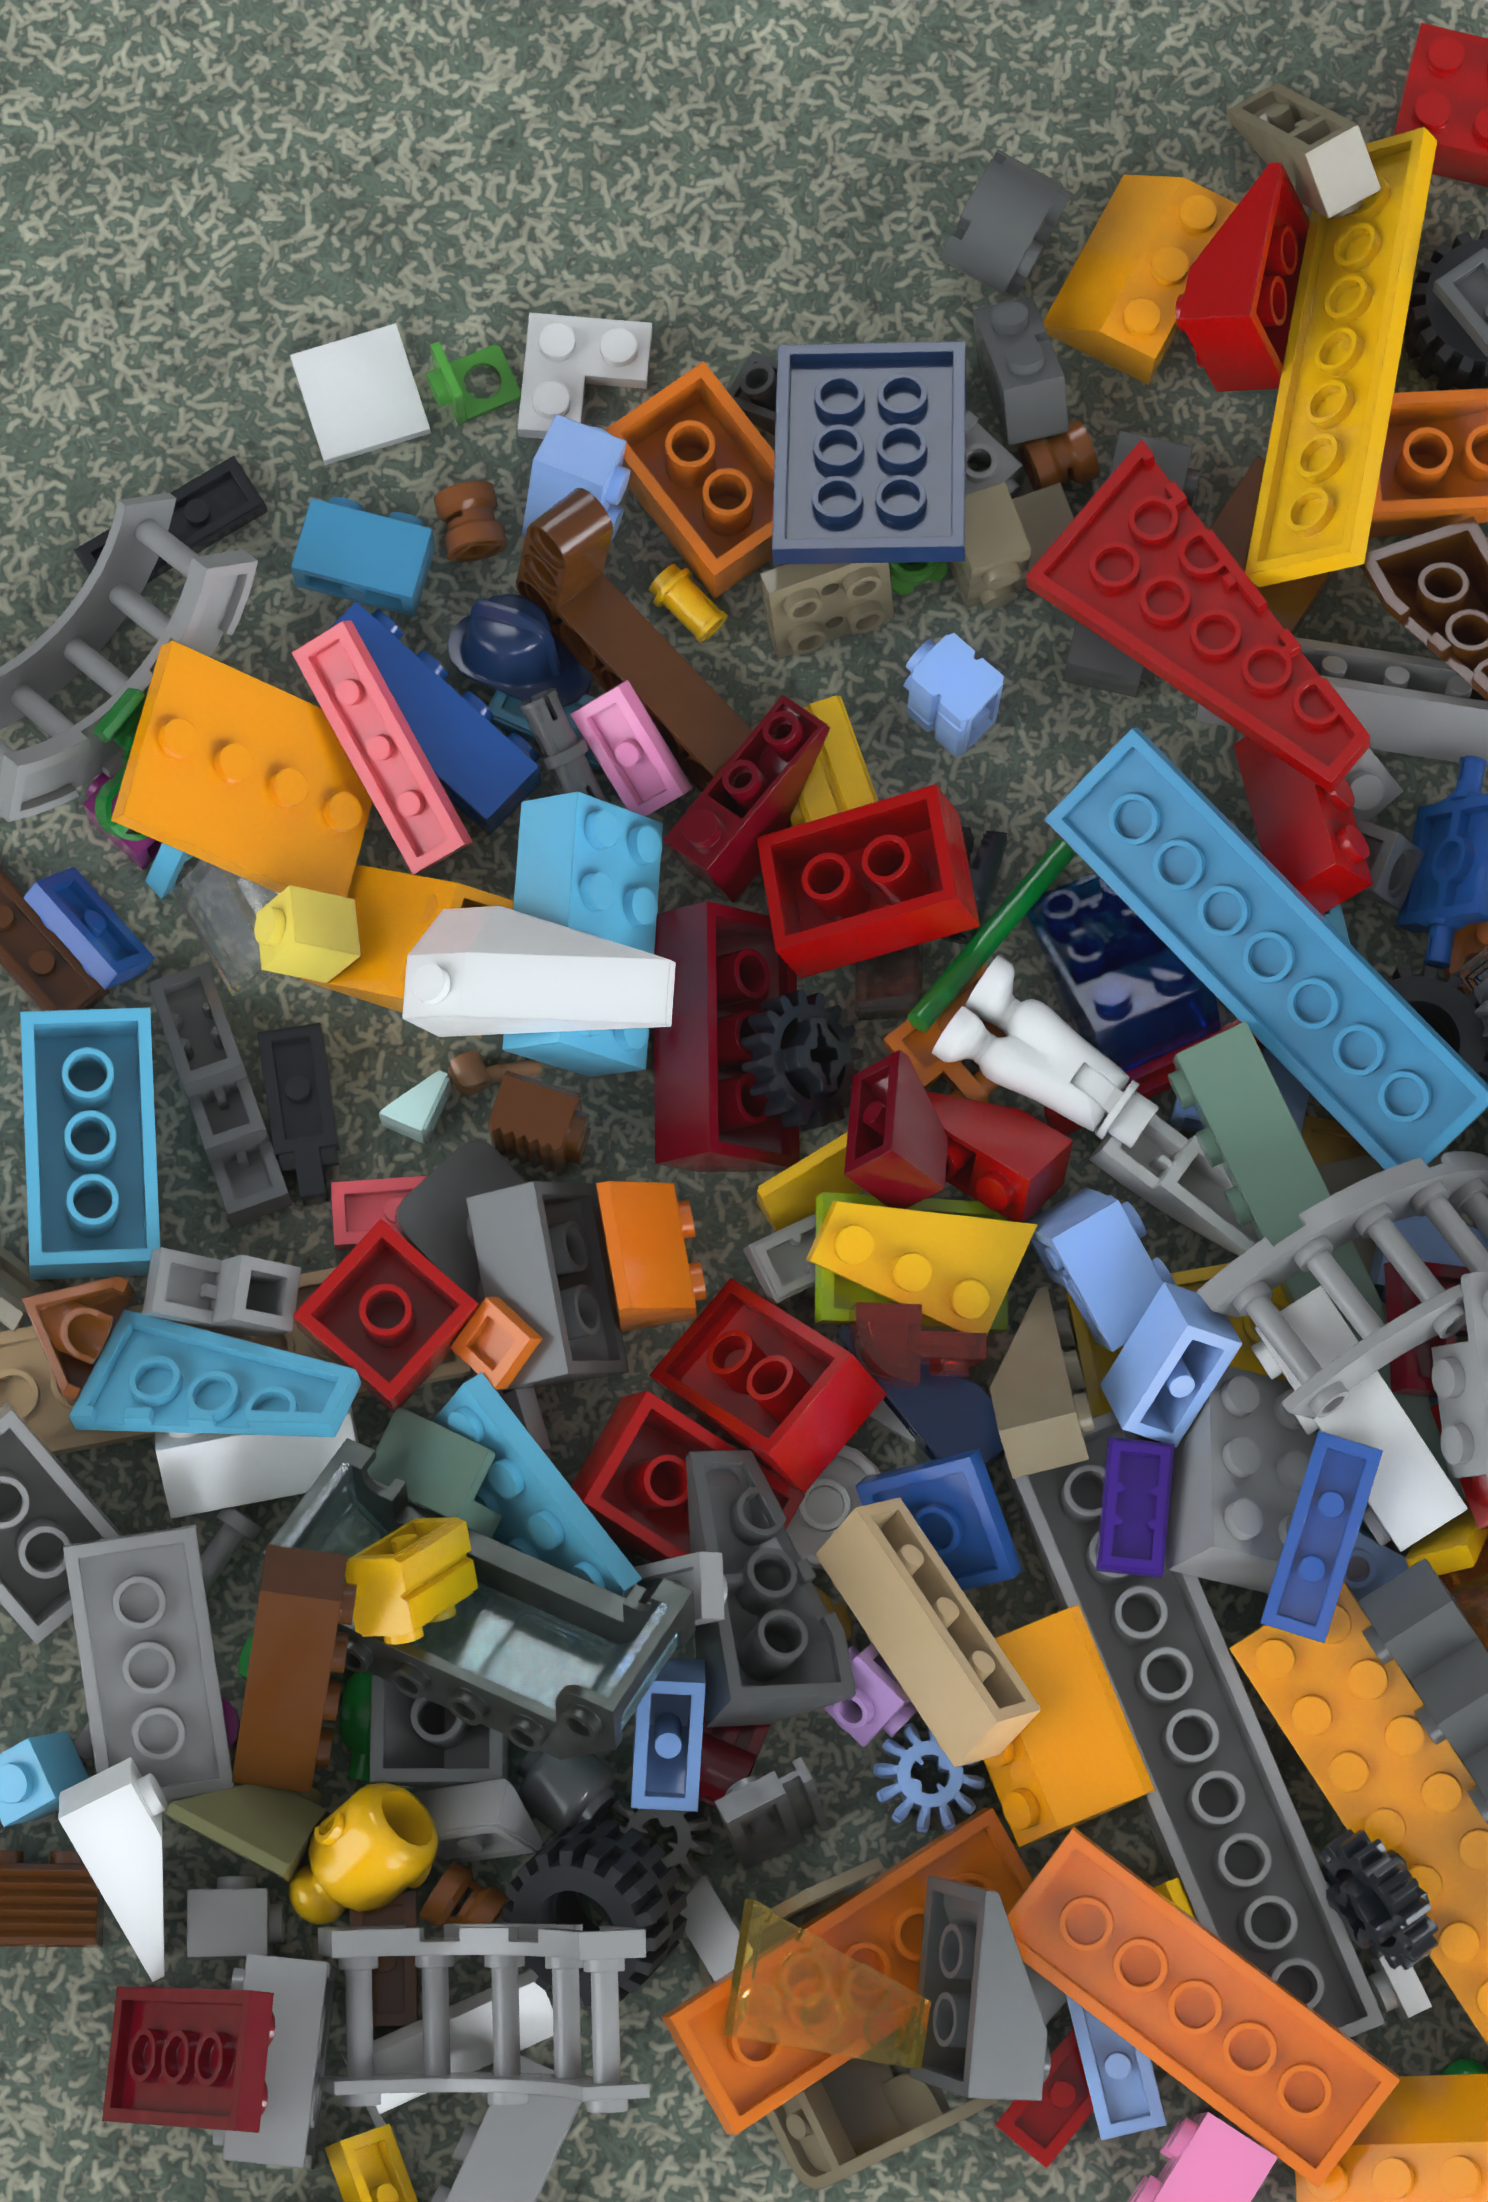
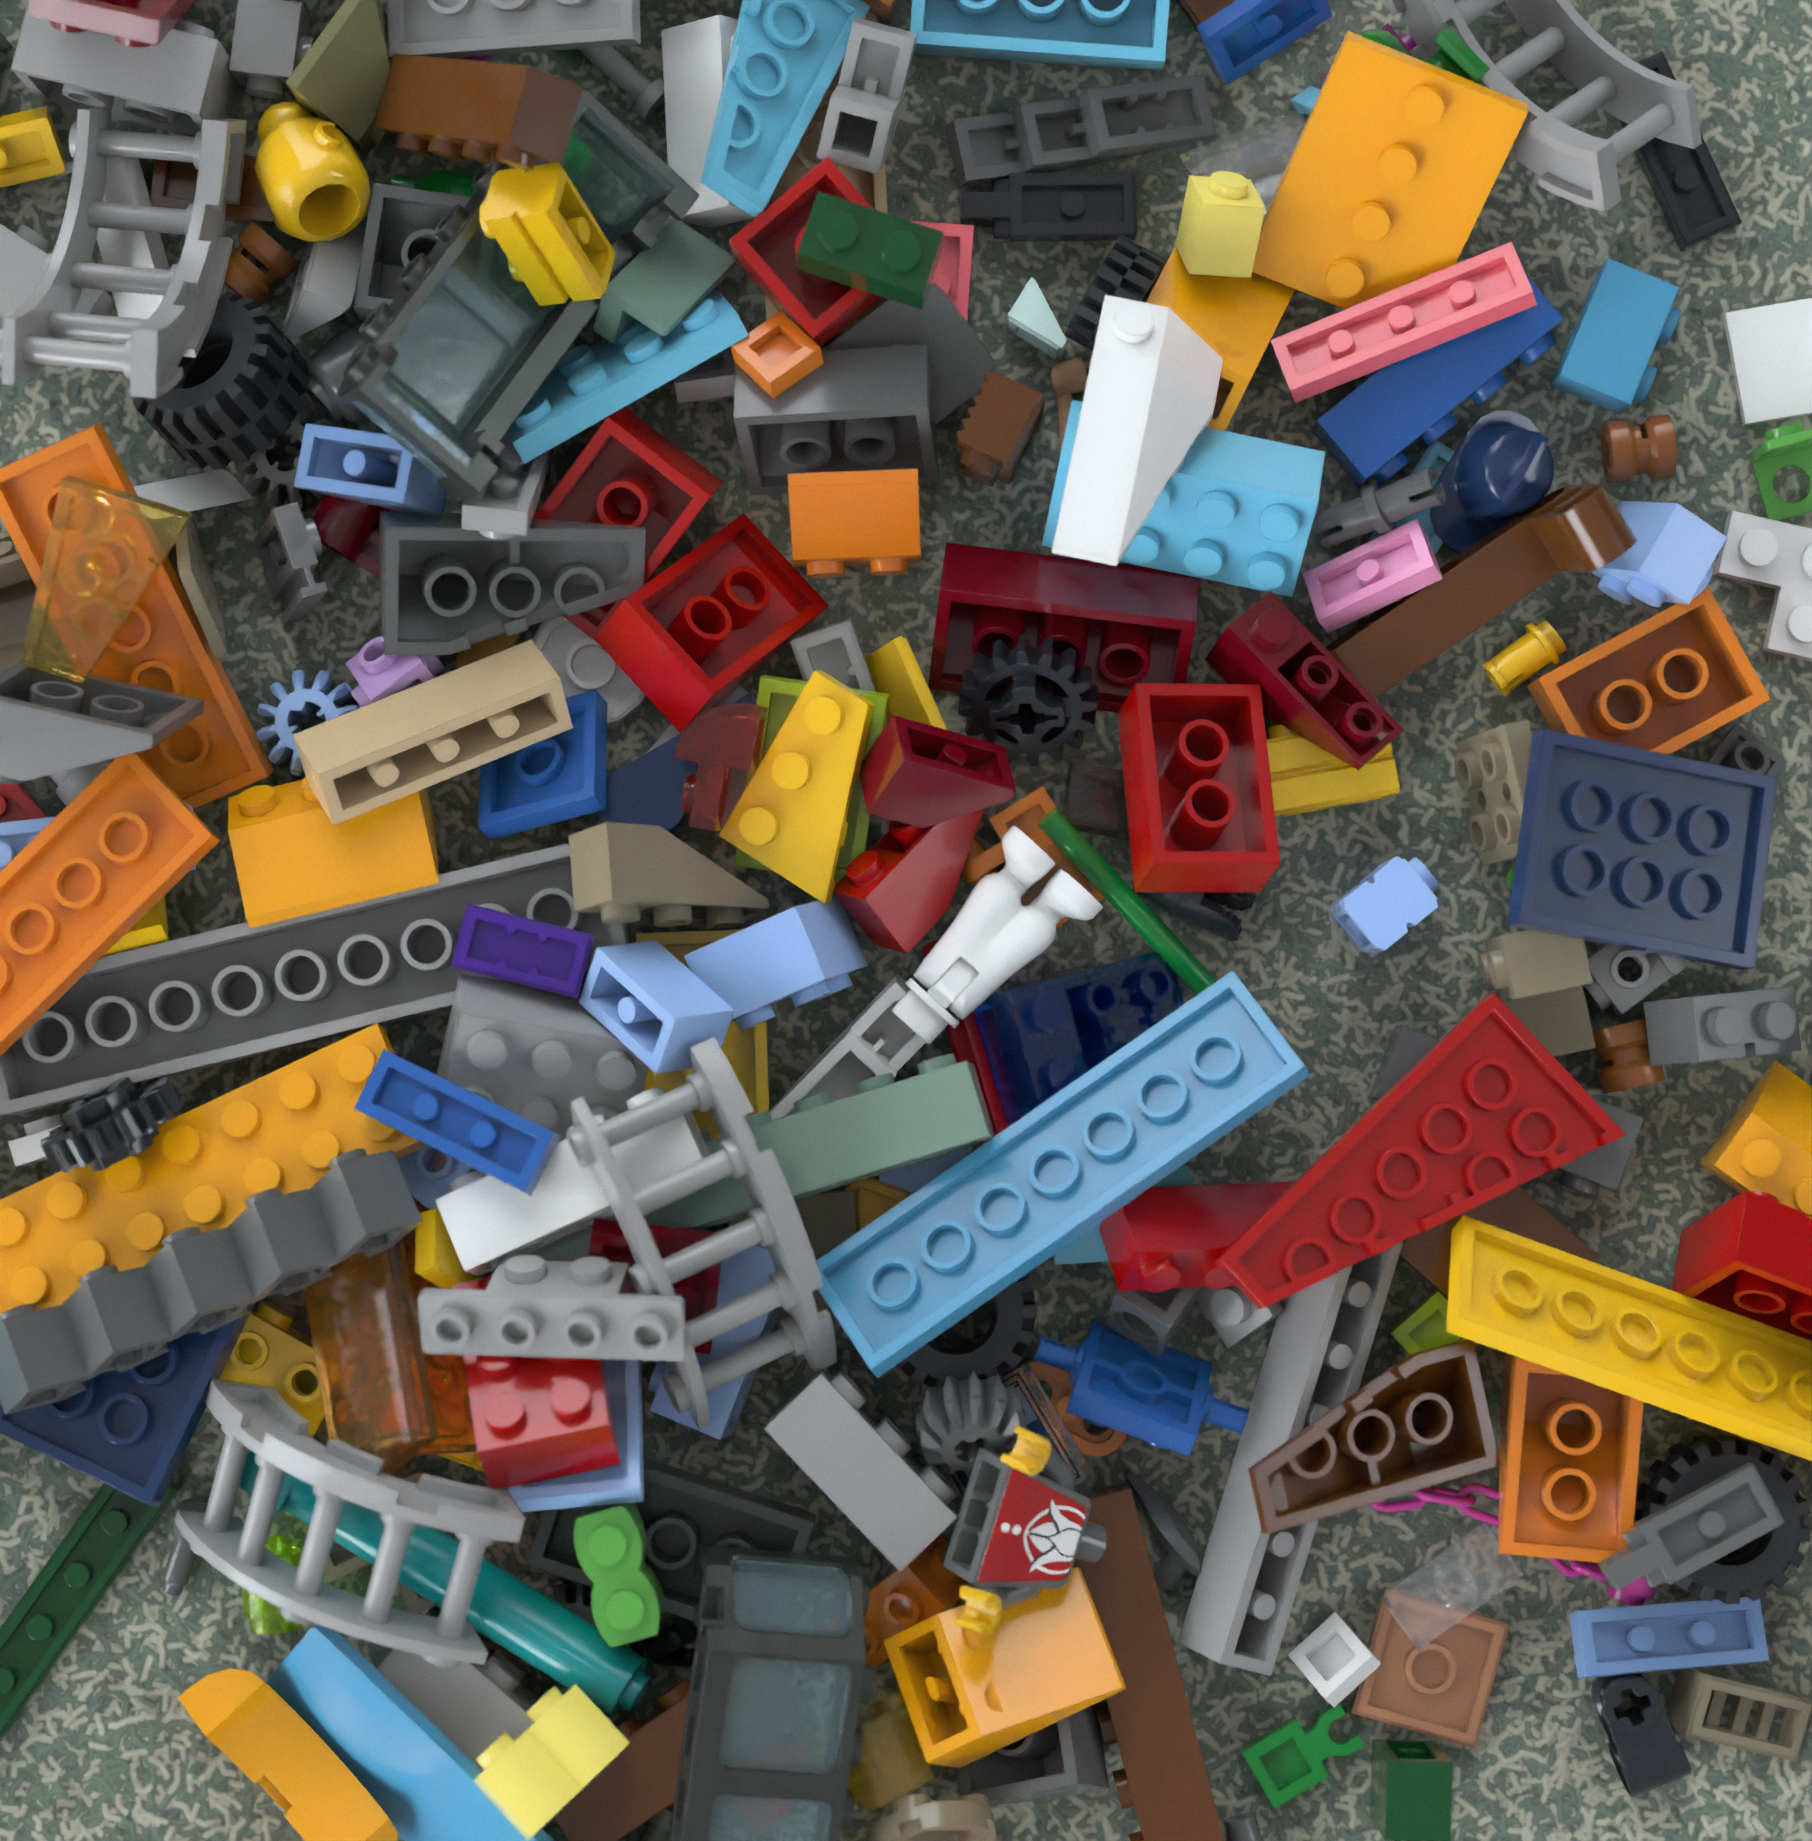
camera: 105 degrees right, 10 degrees up
(373, 1025) = (1126, 273): none -> black tyre
(388, 1250) = (870, 250): none -> dark green brick
(1351, 605) = (1425, 1326): none -> lime plate

